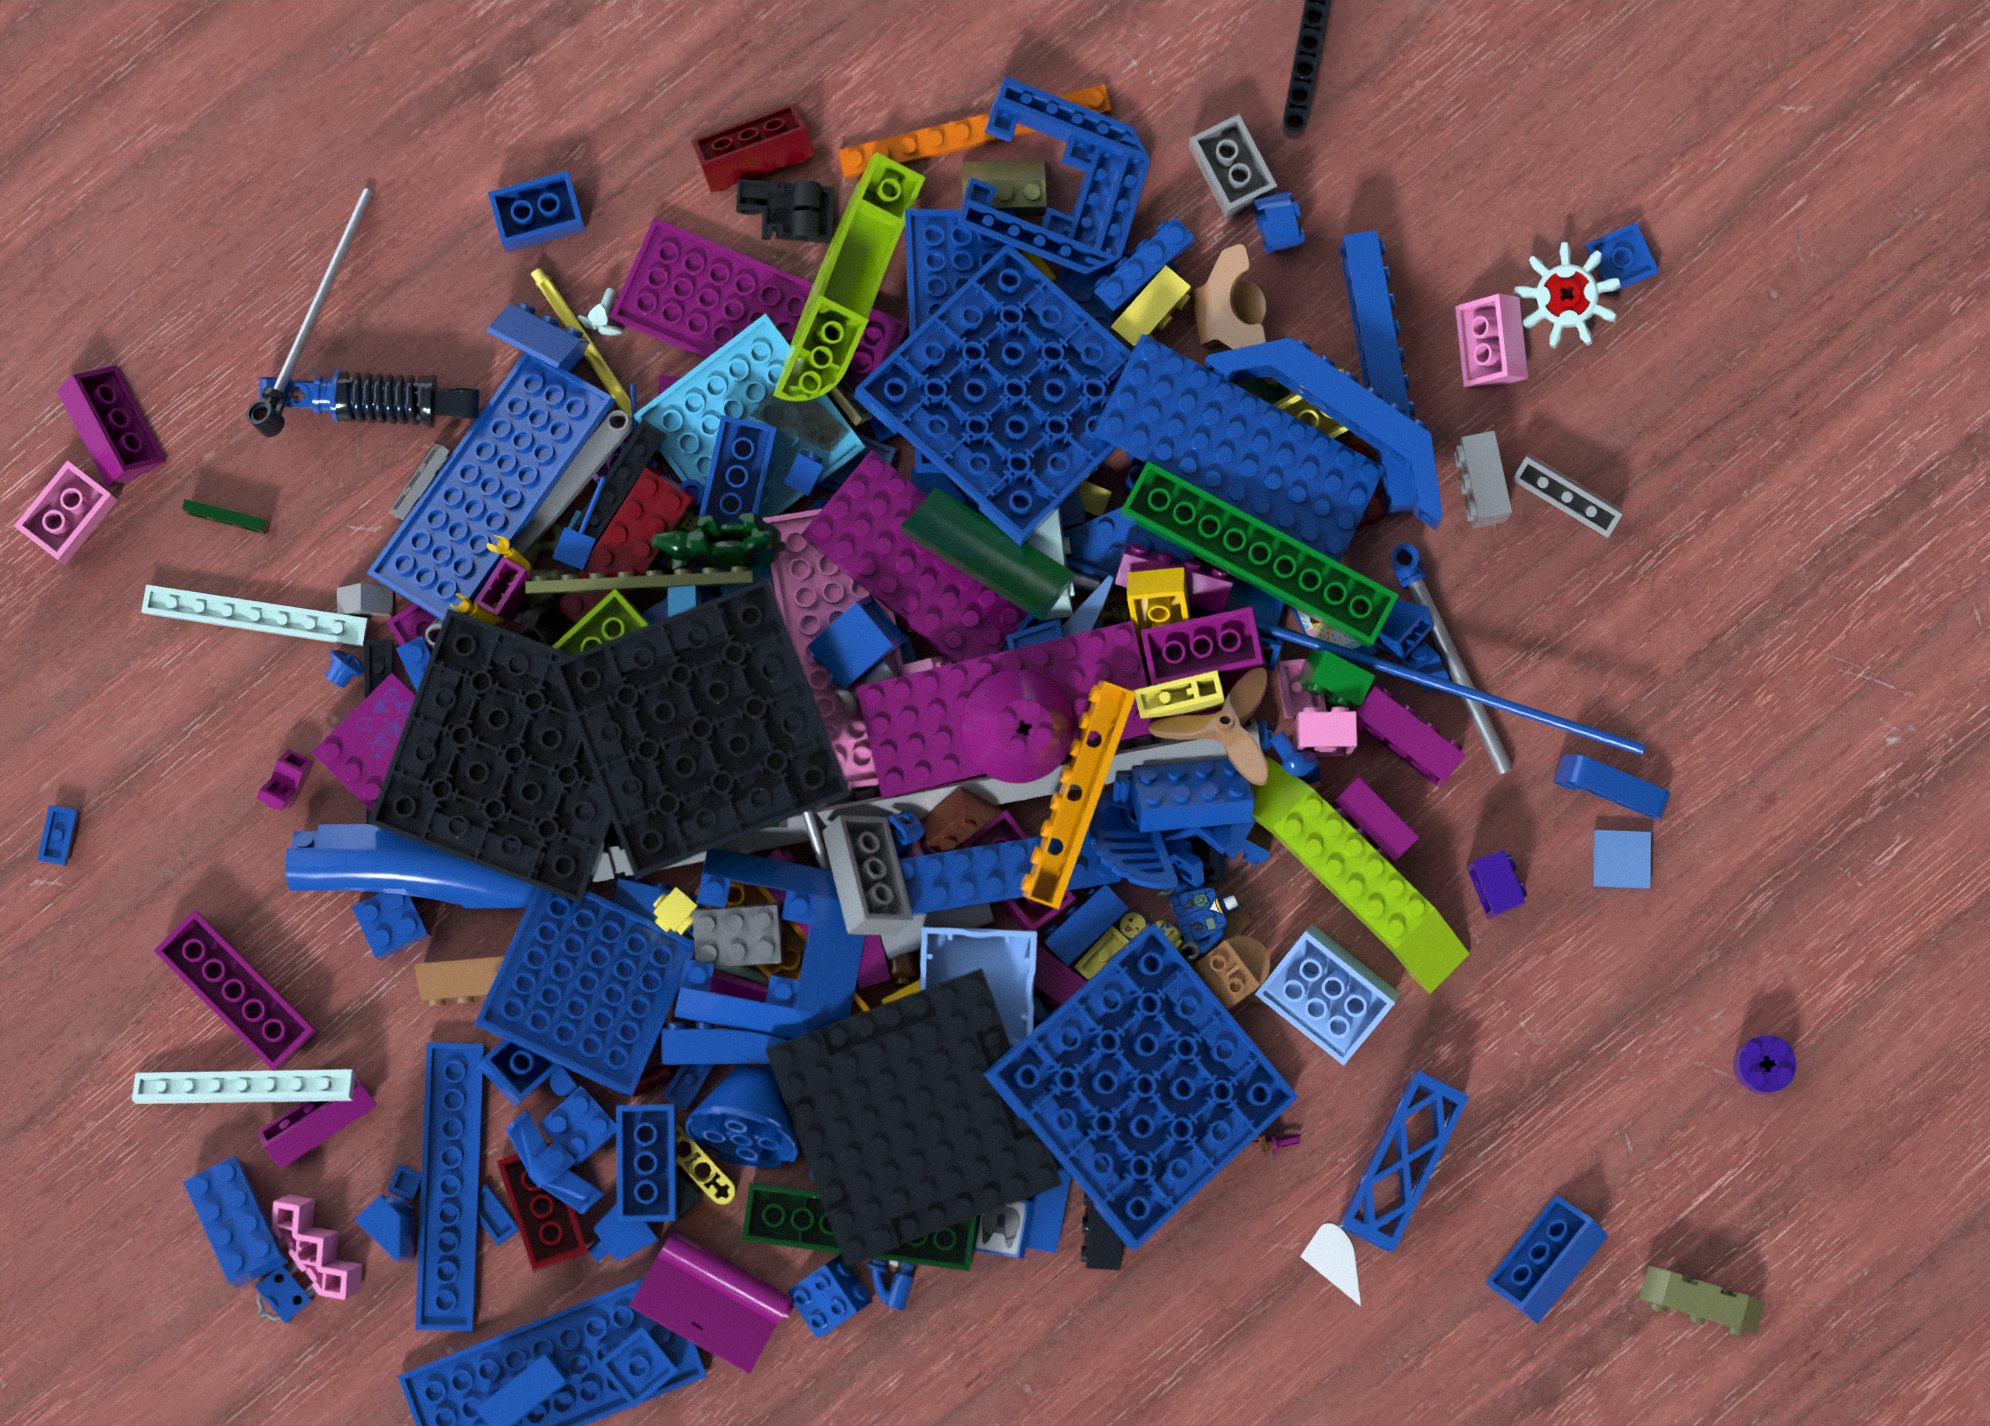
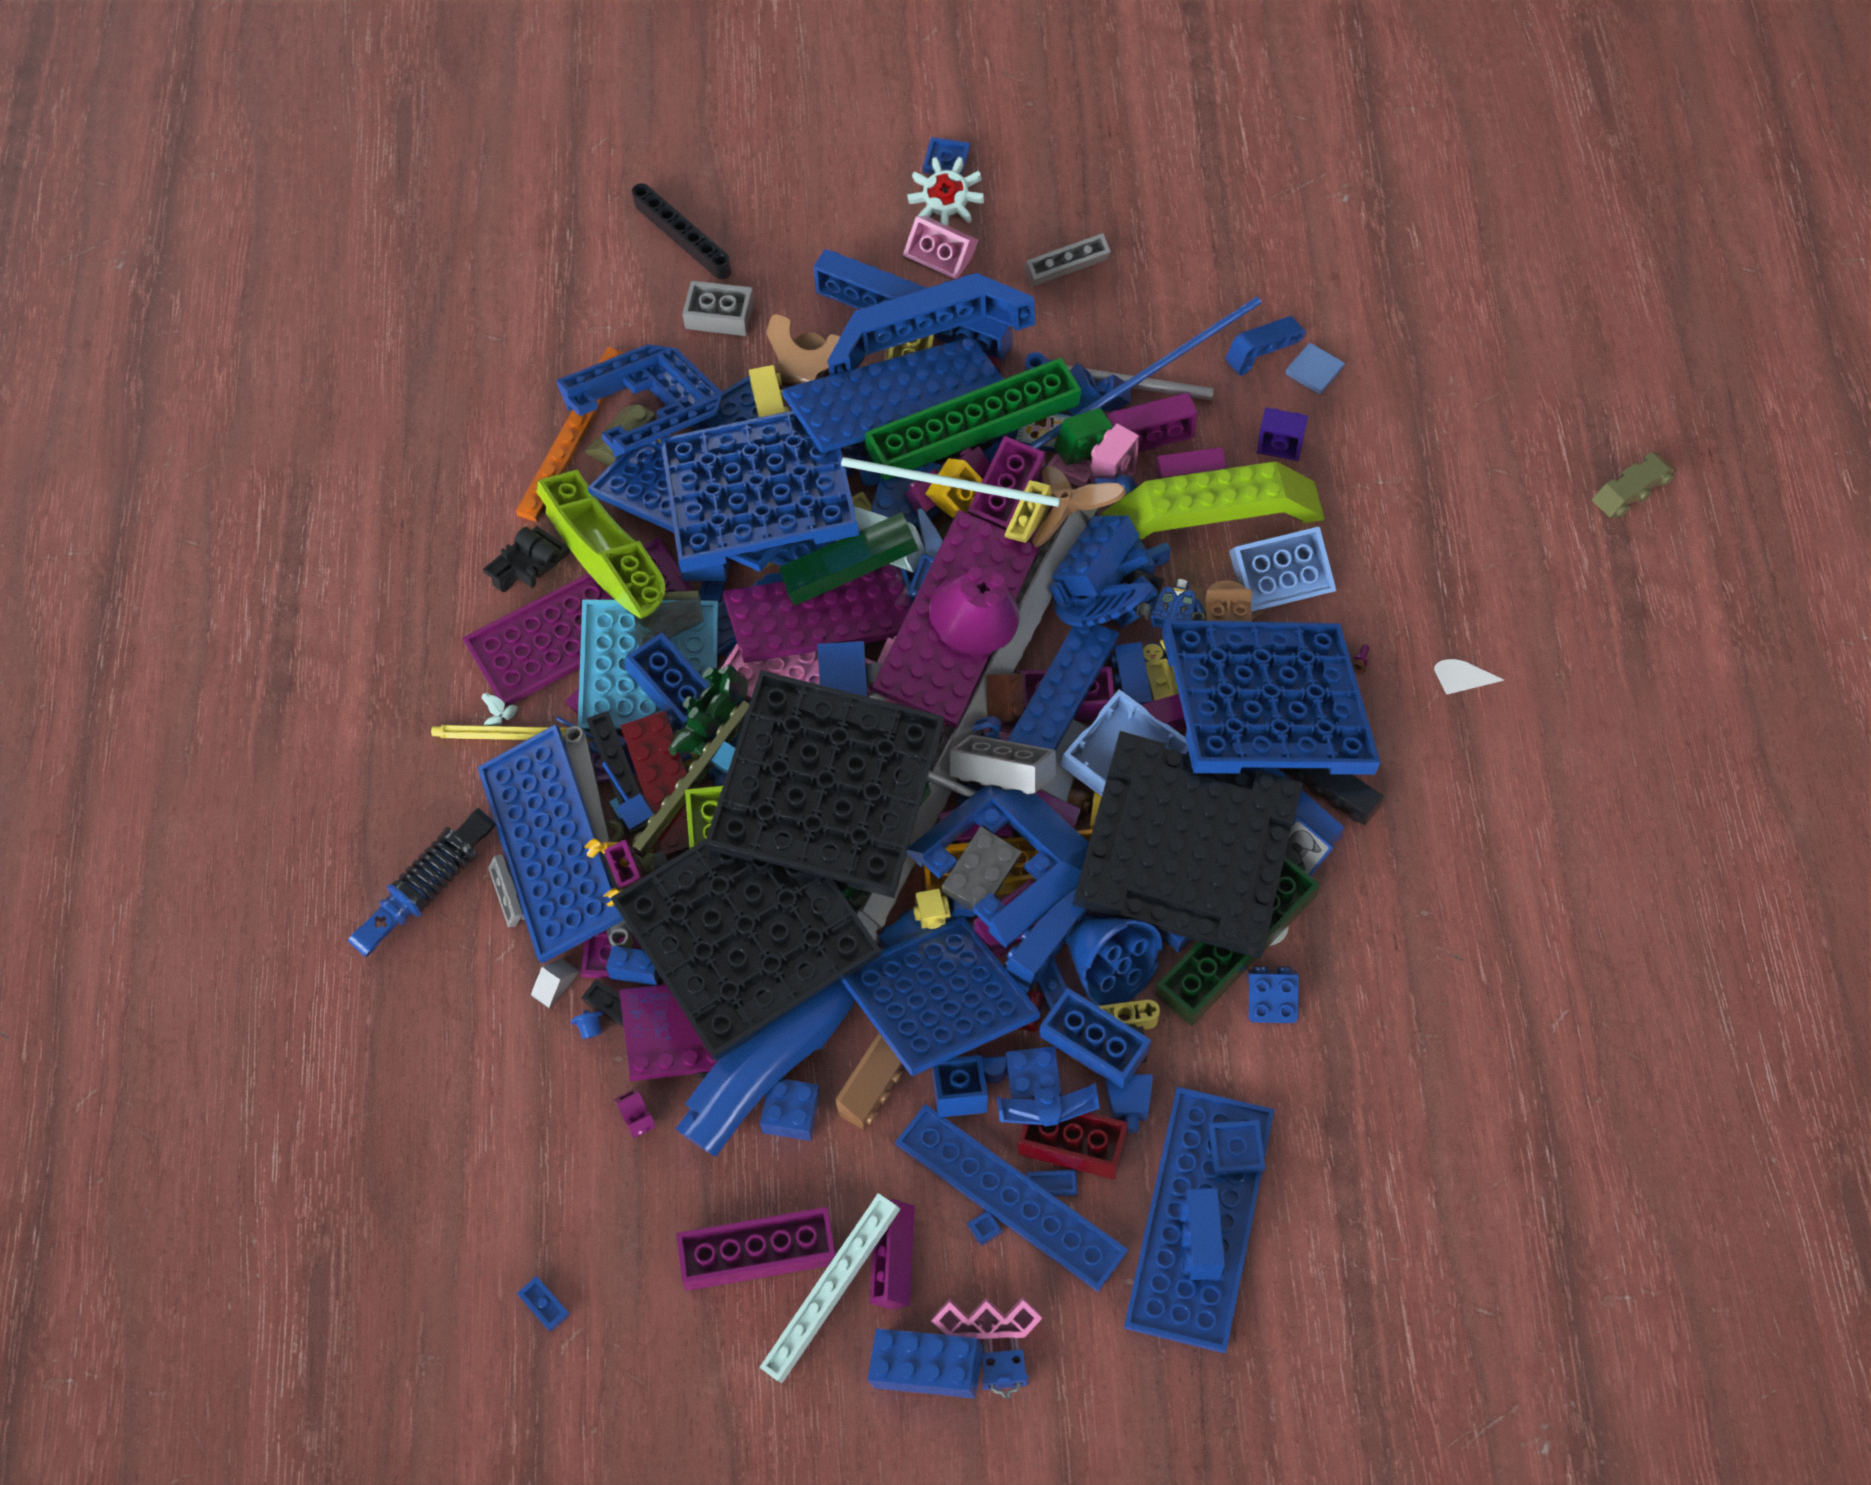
camera: 50 degrees left, 20 degrees down
(66, 512) = (323, 1136): bright pink brick -> none
(111, 425) = (290, 1067): magenta slope -> none
(226, 517) = (420, 1032): dark green tile -> none
(255, 615) = (502, 1060): light aqua plate -> none
(267, 412) = (373, 938): flat silver piece -> none
(391, 1226) = (1015, 1241): blue slope -> none
(536, 211) = (395, 701): blue brick -> none
(540, 336) = (477, 748): blue slope -> none
(722, 1299) = (1221, 1069): magenta door -> none
(753, 147) = (470, 553): dark red slope -> none
(805, 473) = (705, 644): blue brick -> none
(900, 1286) = (1302, 950): blue plant -> none
(1088, 770) = (1039, 594): light orange piece -> none
(1137, 272) = (738, 383): blue brick -> none
(1146, 595) = (952, 482): none -> light aqua piece
(1277, 221) = (772, 299): blue brick -> none
(1409, 1195) = (1387, 550): blue piece -> none
(1482, 480) = (1040, 288): light grey brick -> none
(1547, 1259) = (1547, 553): blue slope -> none
(1763, 1080) = (1503, 366): dark purple brick -> none

